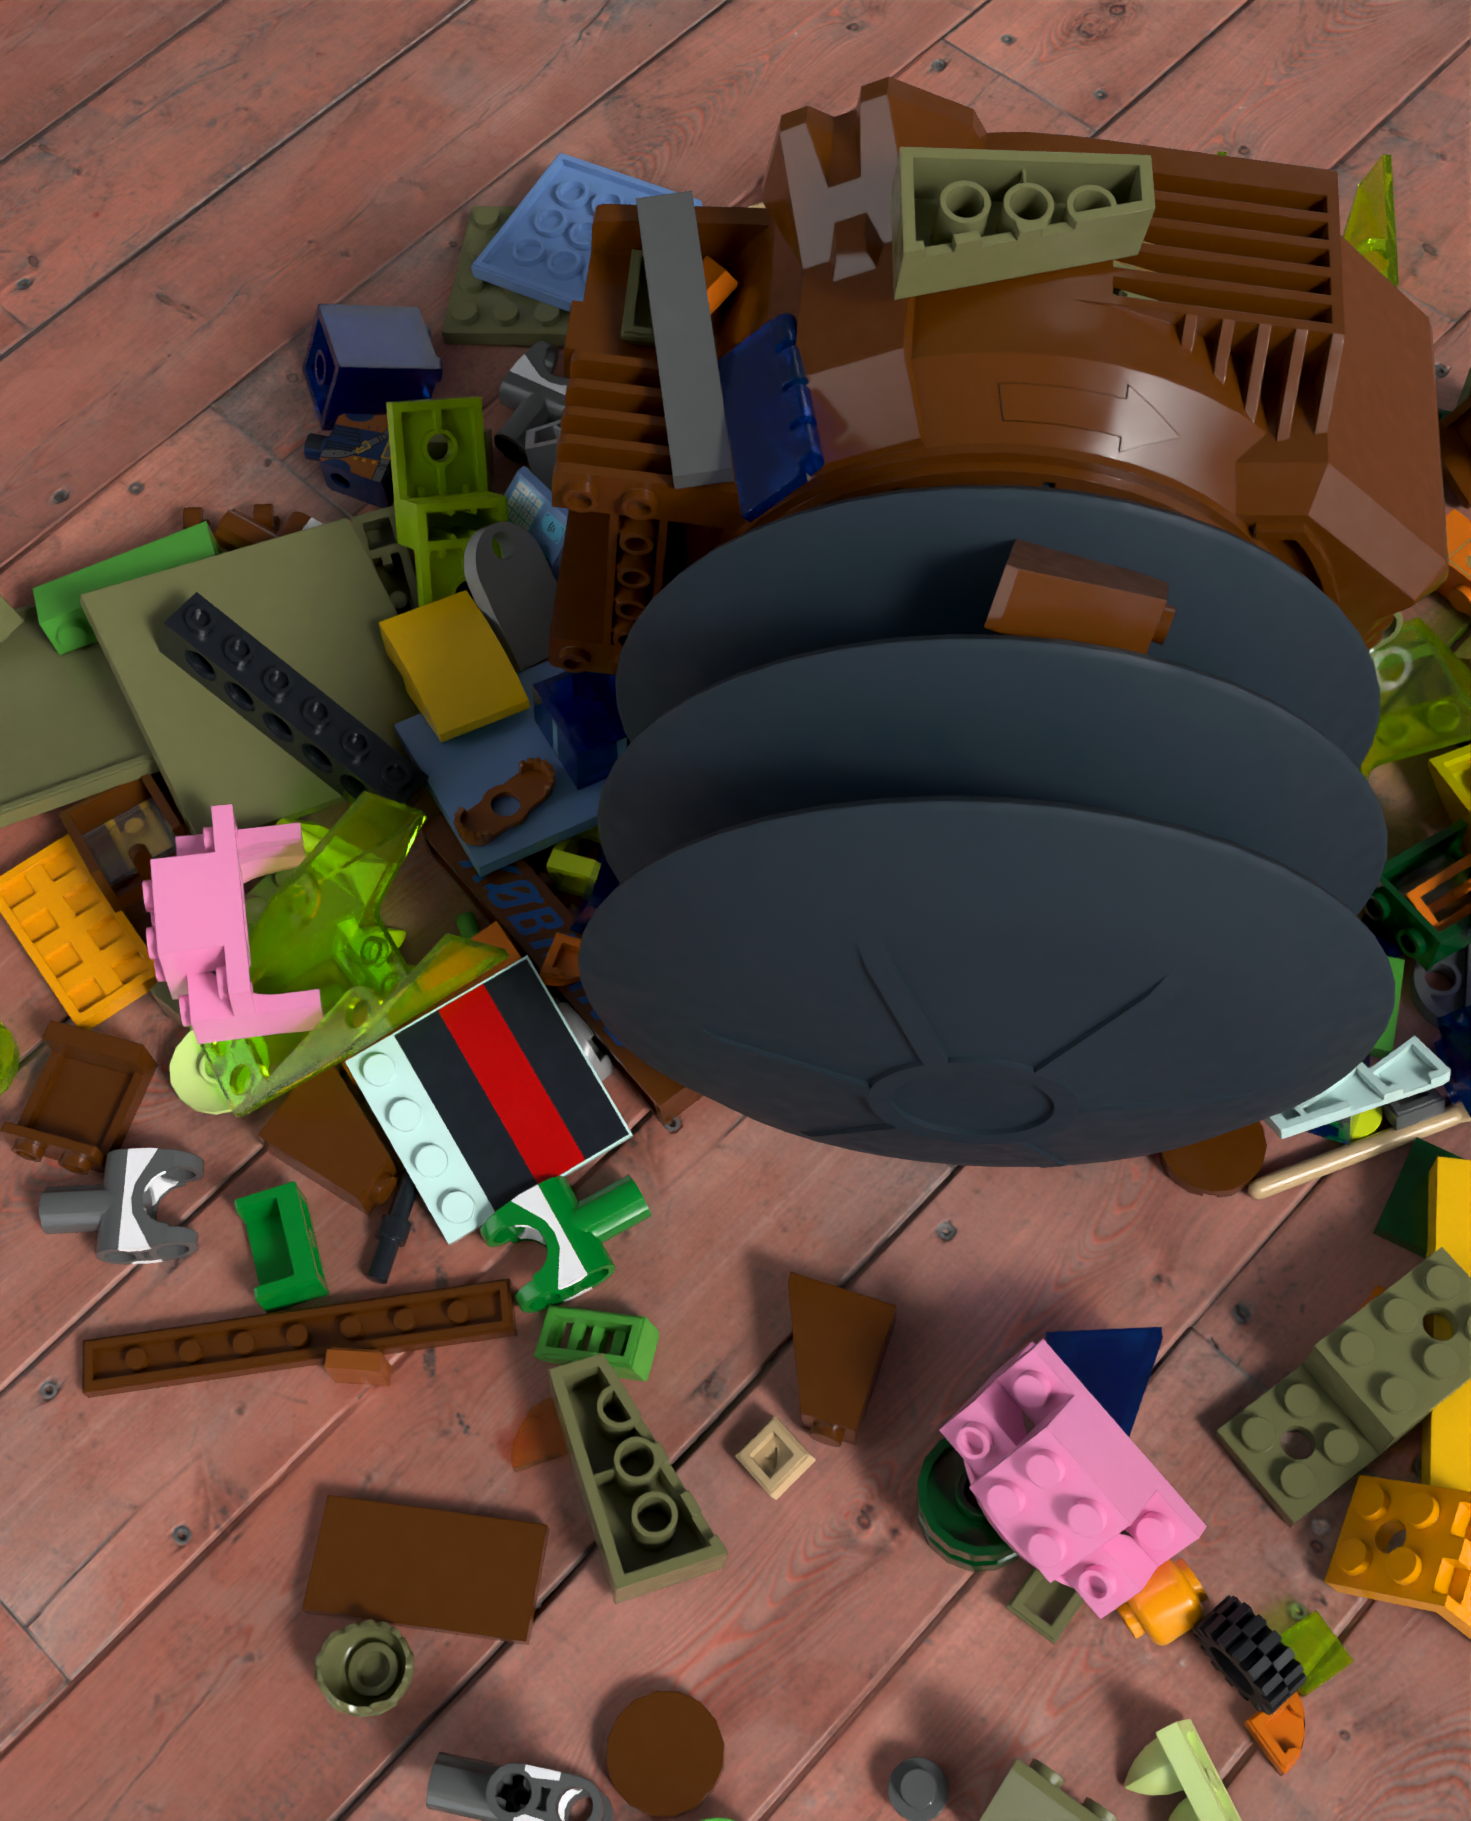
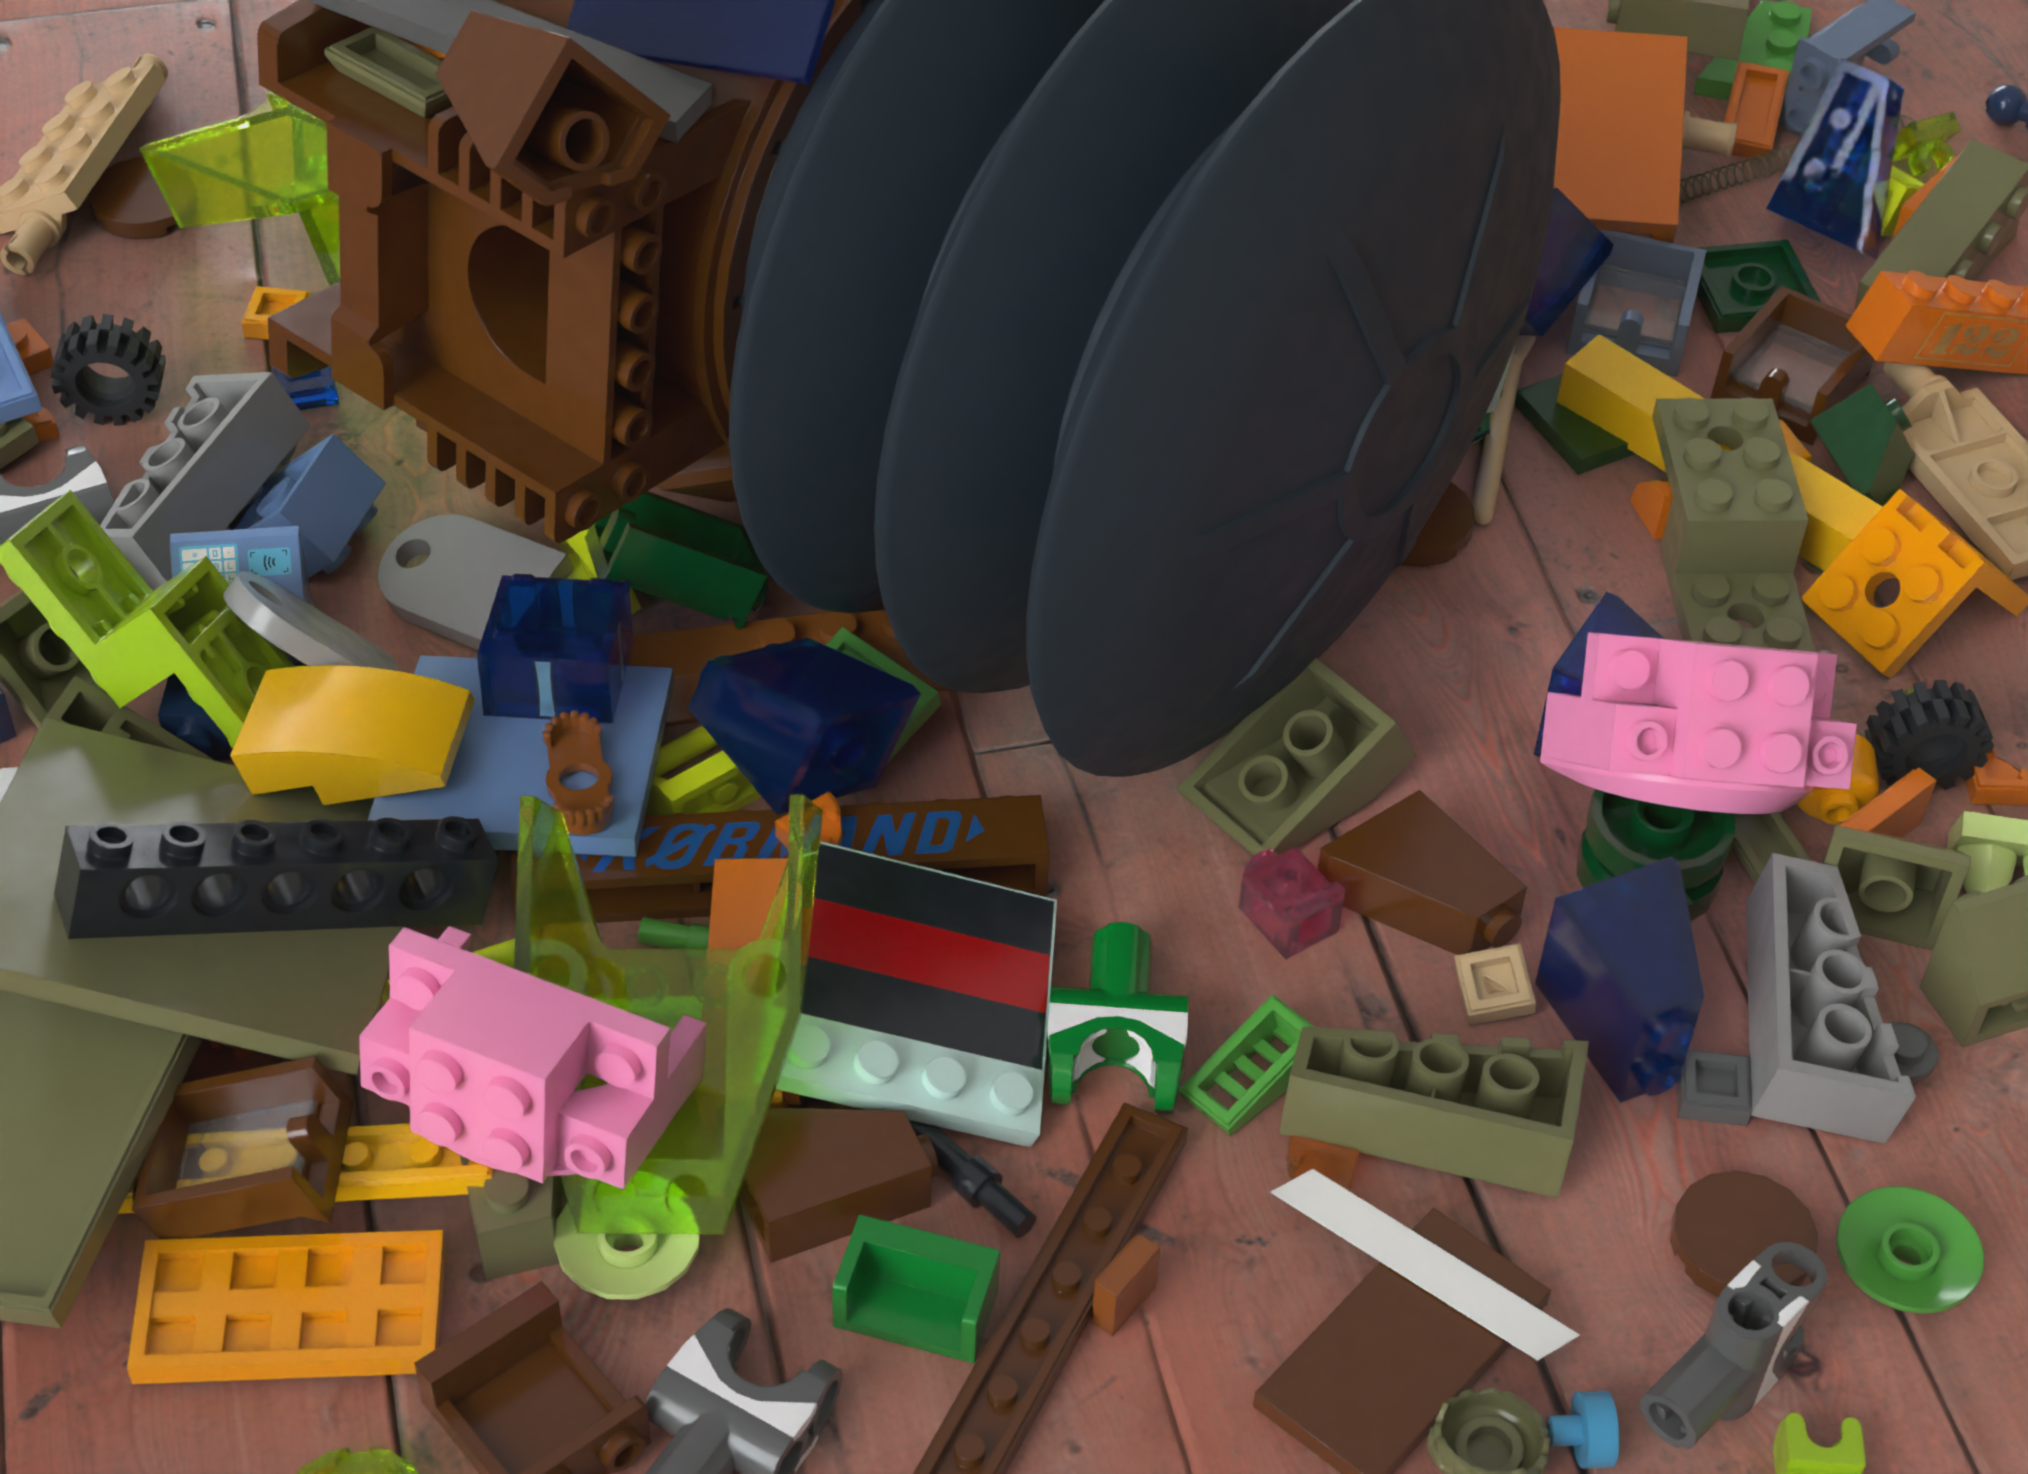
camera: 65 degrees left, 15 degrees down
(421, 1727) = (1589, 1429): none -> dark azure tile
(493, 1547) = (1426, 1264): none -> white sticker
(588, 405) = (546, 109): none -> reddish brown slope
(753, 1295) = (1290, 900): none -> clear pink brick
(793, 1663) = (1715, 1088): none -> dark grey tile
(818, 1550) = (1626, 976): none -> clear blue slope
(882, 1213) = (1298, 764): none -> olive slope
(889, 1704) = (1813, 1010): none -> light grey wedge
(1073, 1701) = (1897, 884): none -> olive slope
(1138, 1659) = (1897, 808): none -> orange tile

